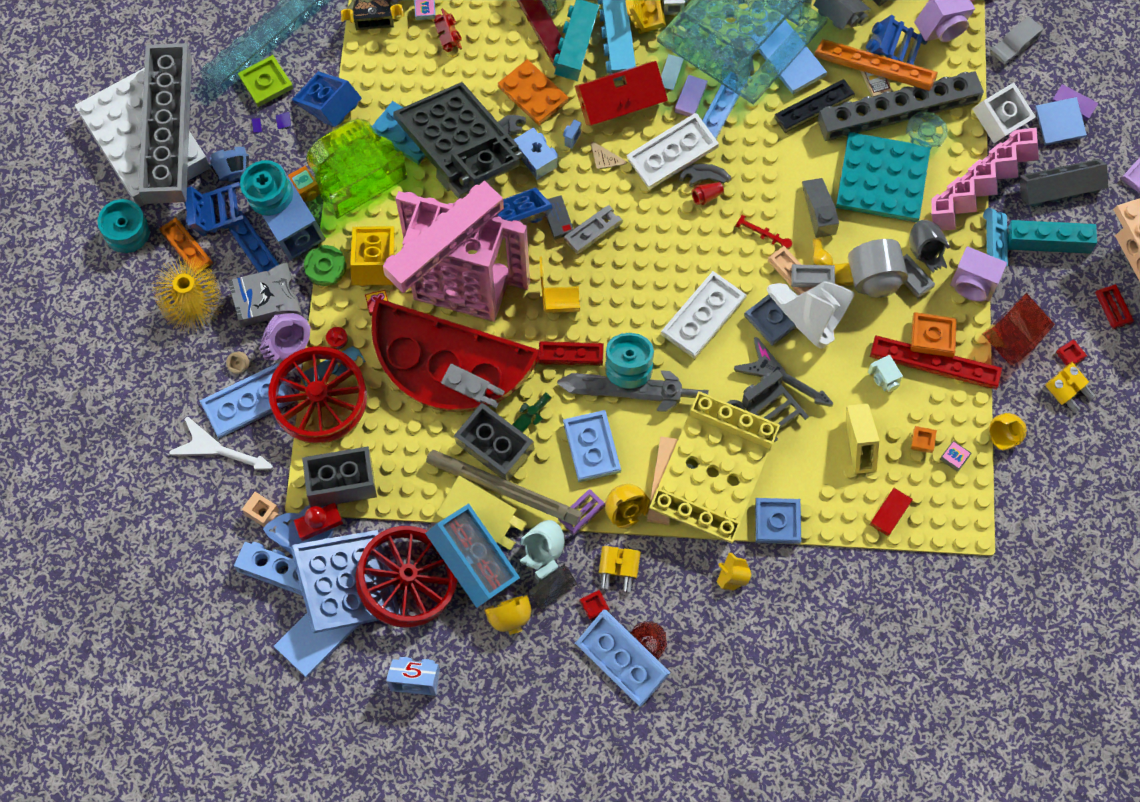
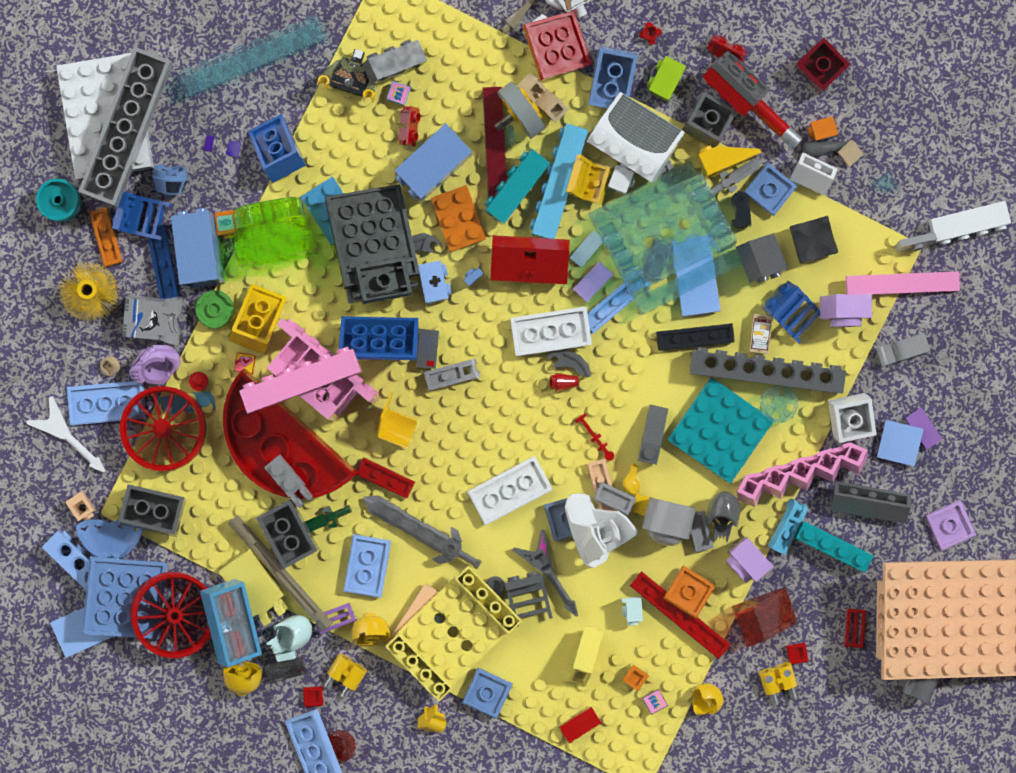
camera: 25 degrees right, 20 degrees up
(265, 80) = (231, 104): lime plate -> none
(266, 187) = (178, 226): teal wheel -> none
(317, 521) = (121, 538): red tile -> none
(413, 676) = (147, 696): light blue slope -> none
(486, 46) = (433, 163): none -> medium blue brick
(605, 158) = (493, 308): tan sticker -> none
(629, 360) = (427, 522): teal wheel -> none
(876, 64) = (764, 324): orange tile -> none

